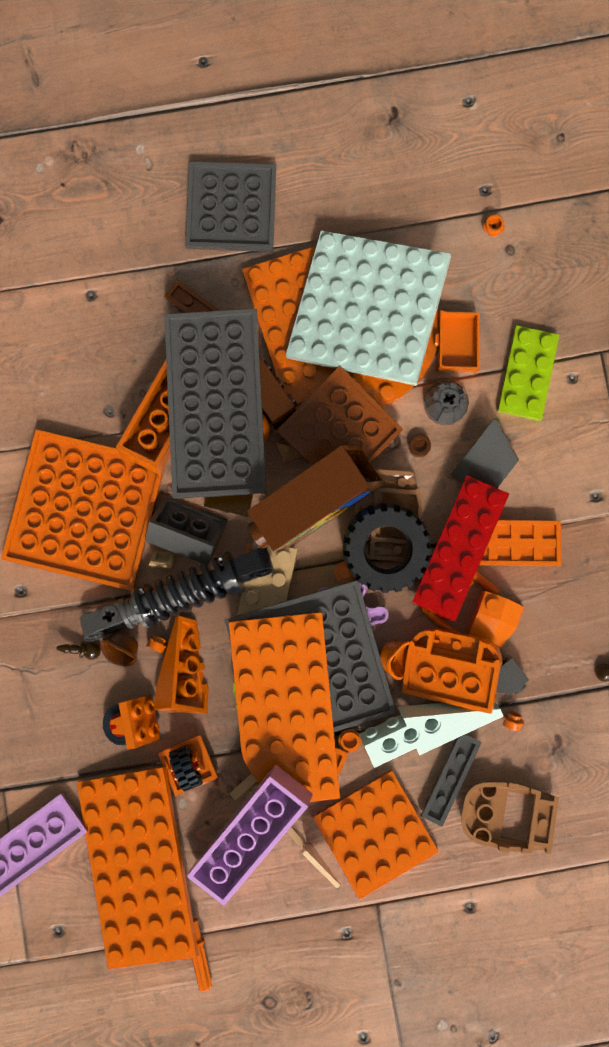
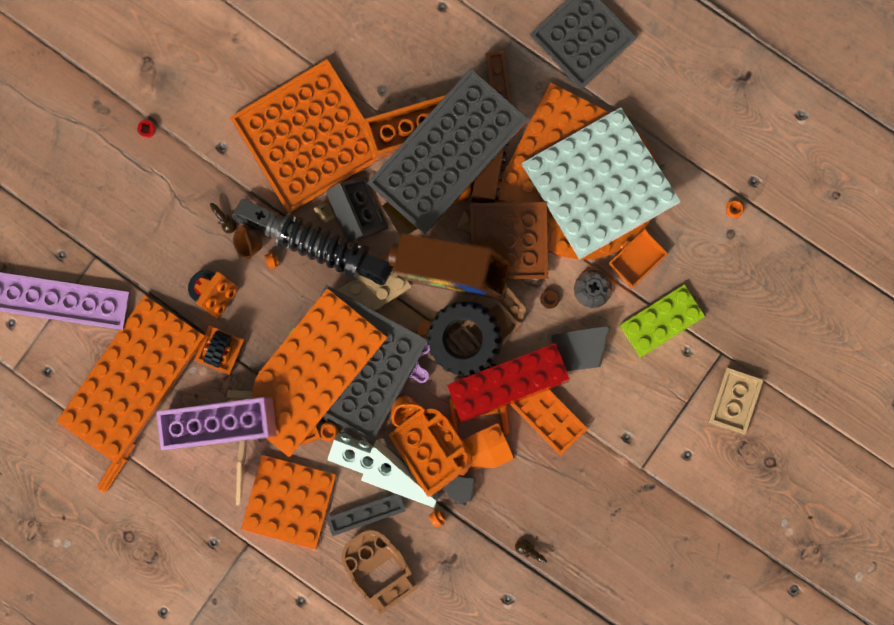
camera: 45 degrees right, 0 degrees up
(181, 675) = (266, 294): orange wedge -> none

